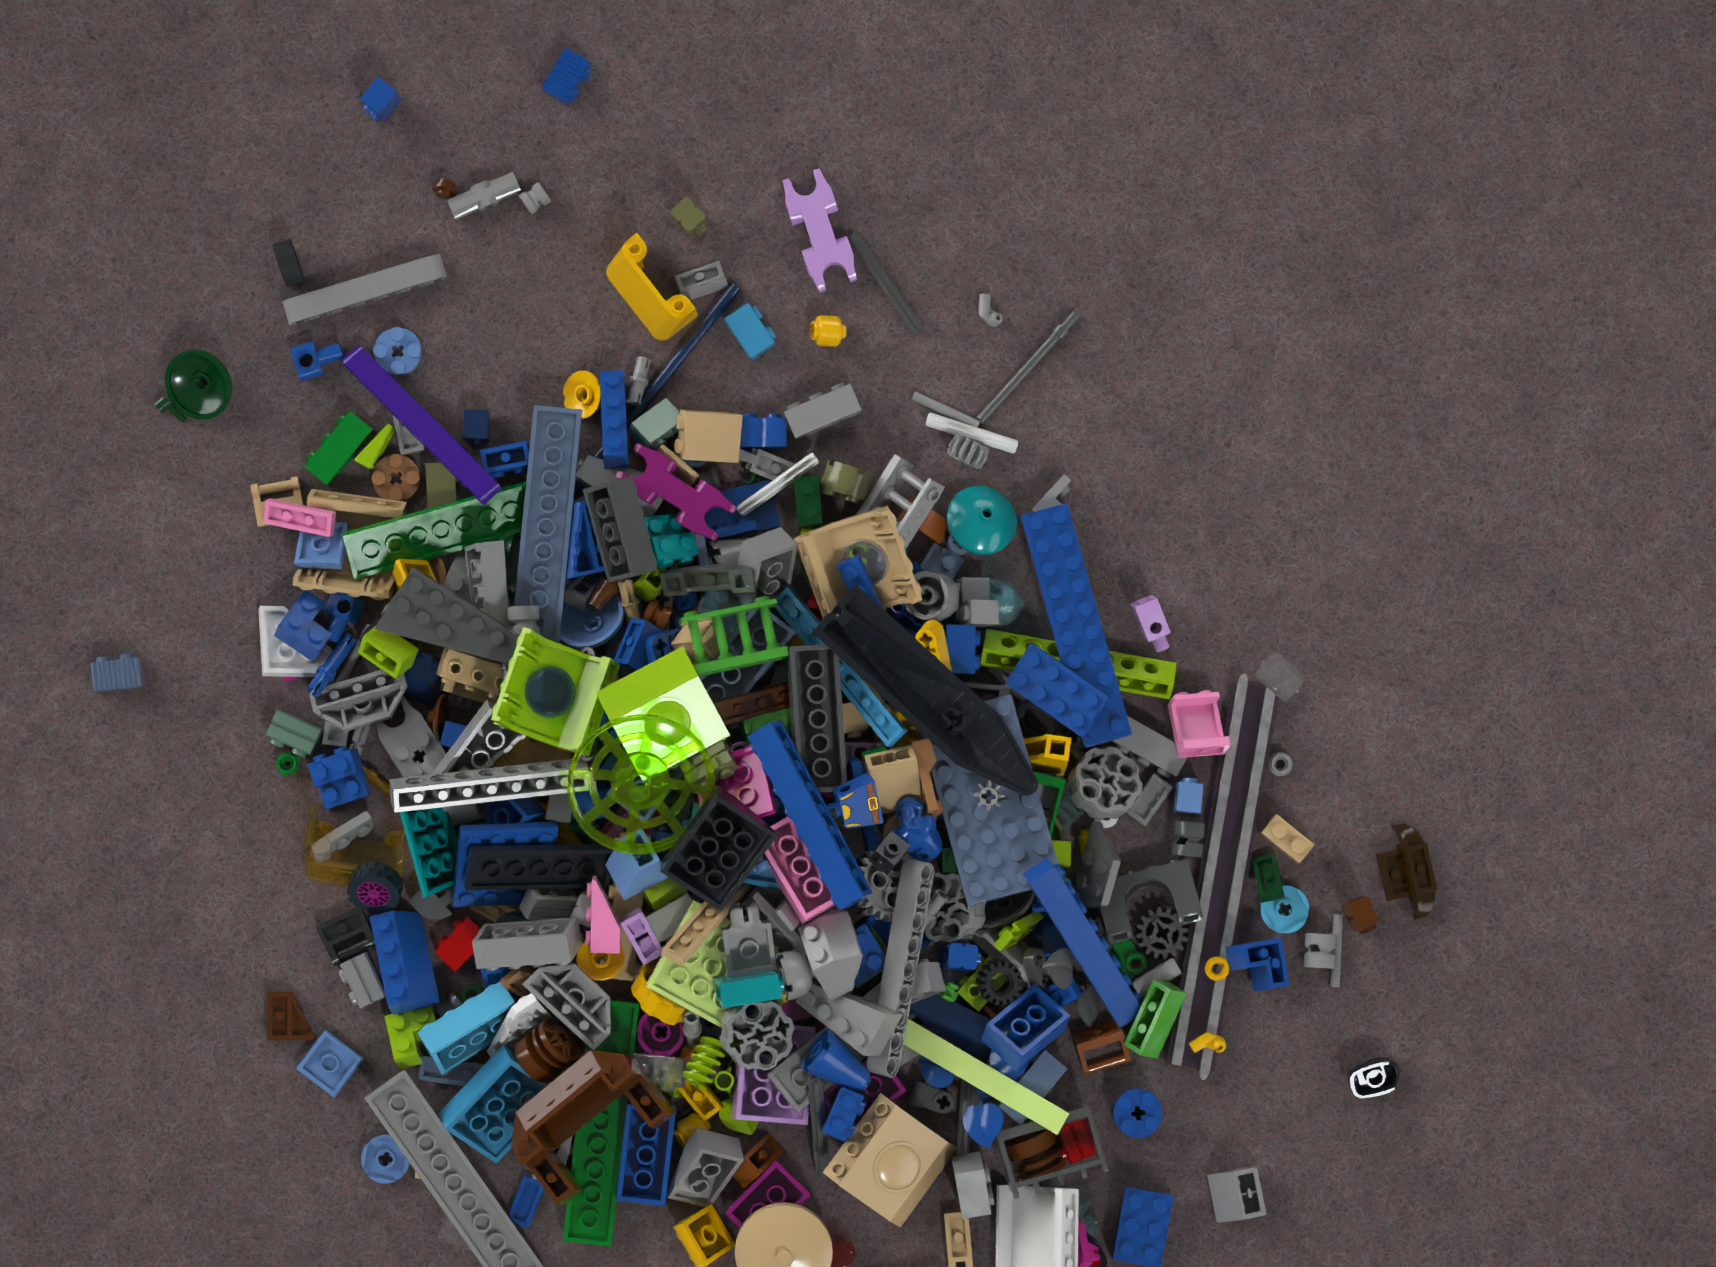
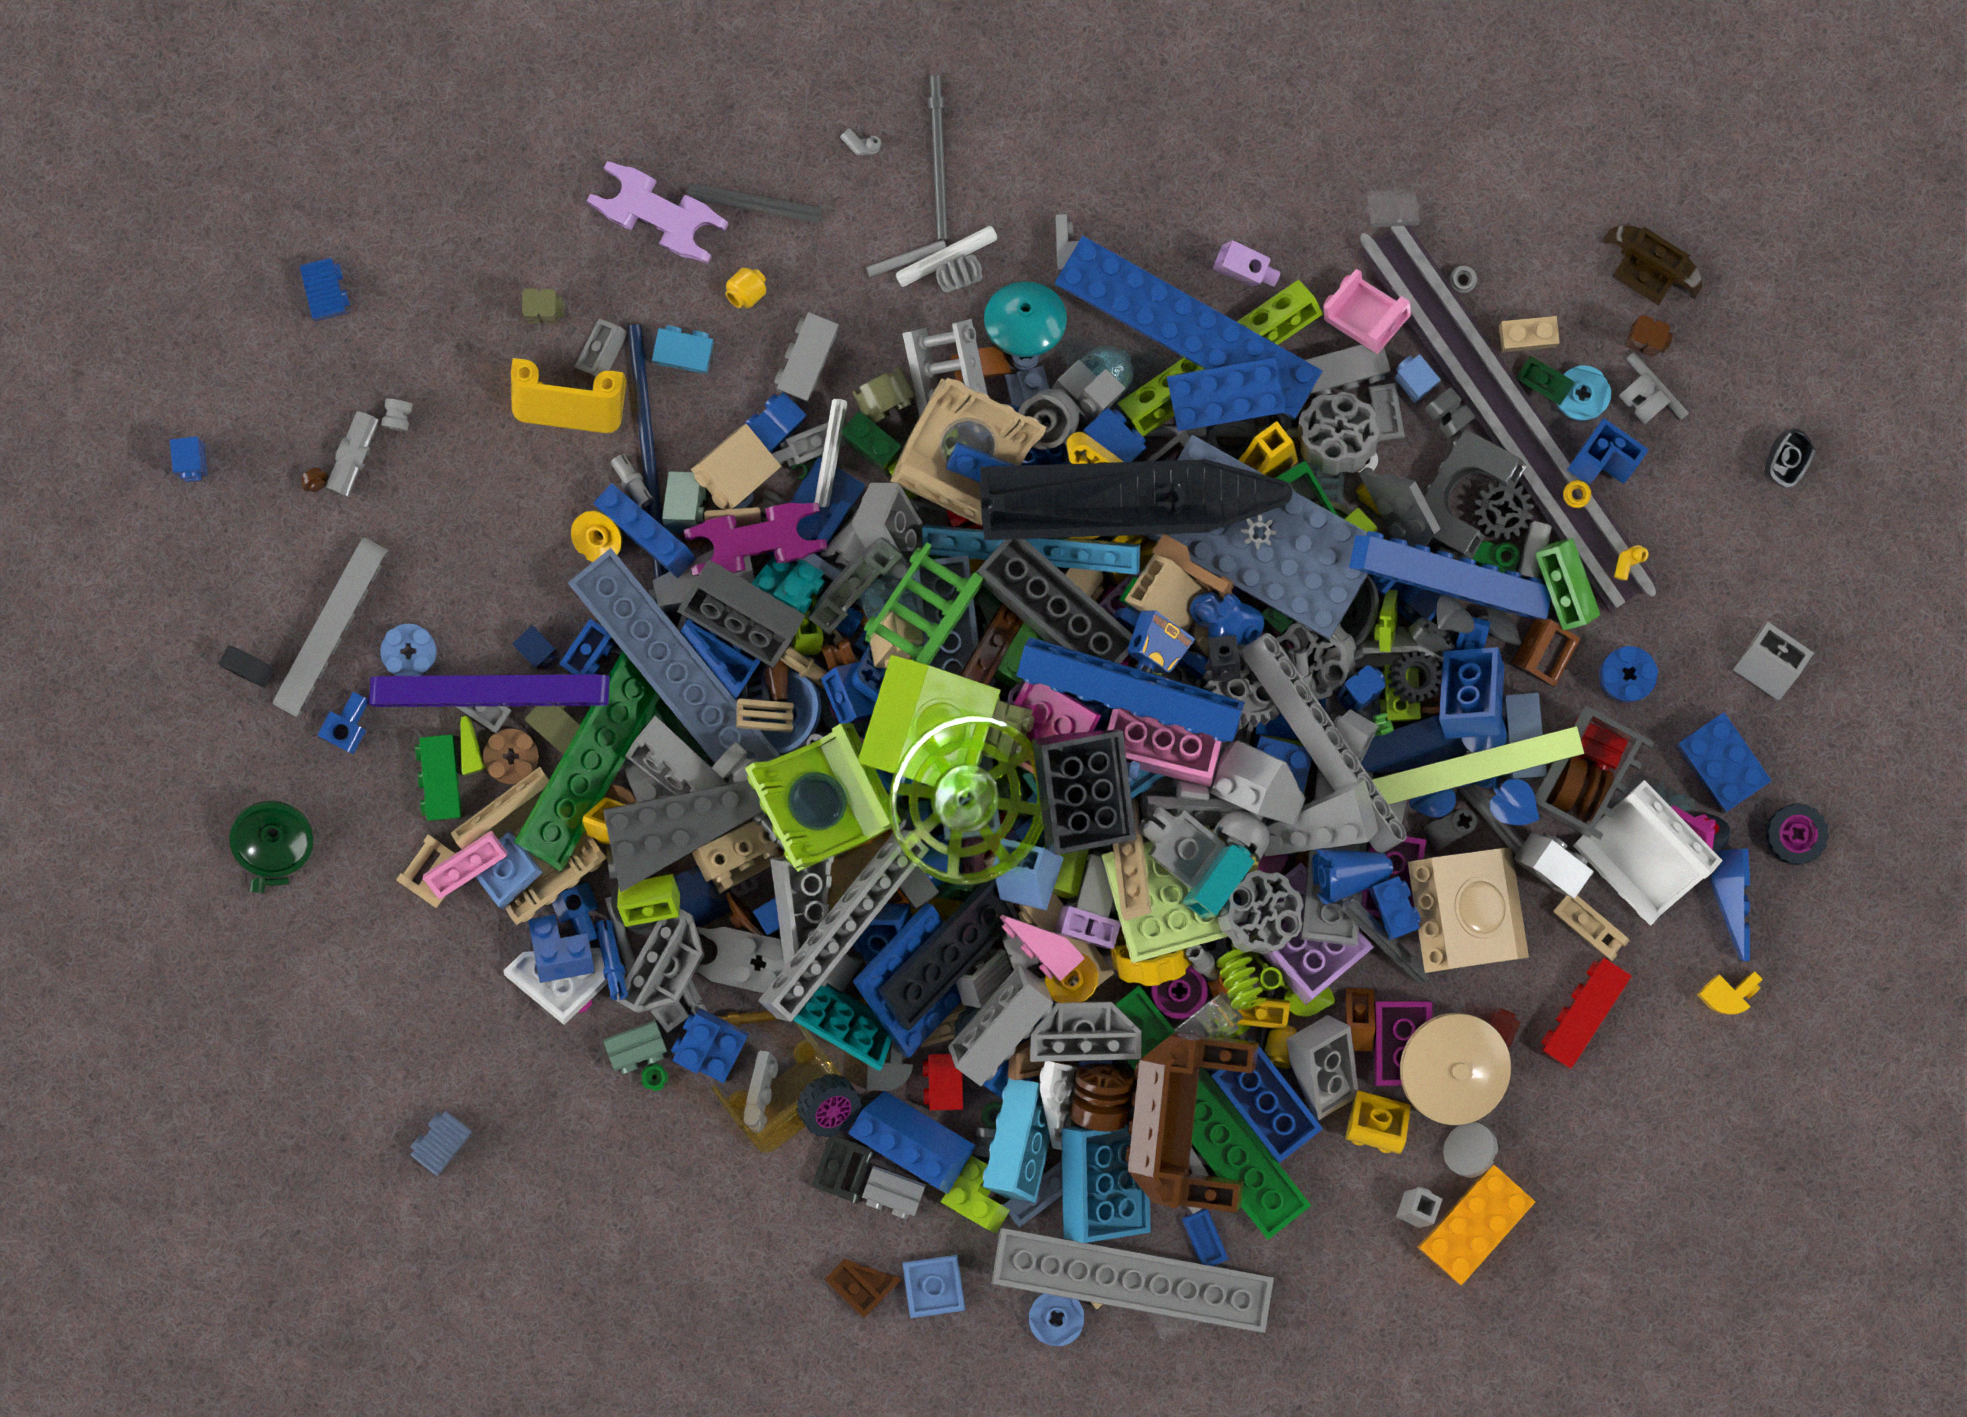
camera: 50 degrees left, 0 degrees up
(560, 591) = (771, 705): none -> tan tile

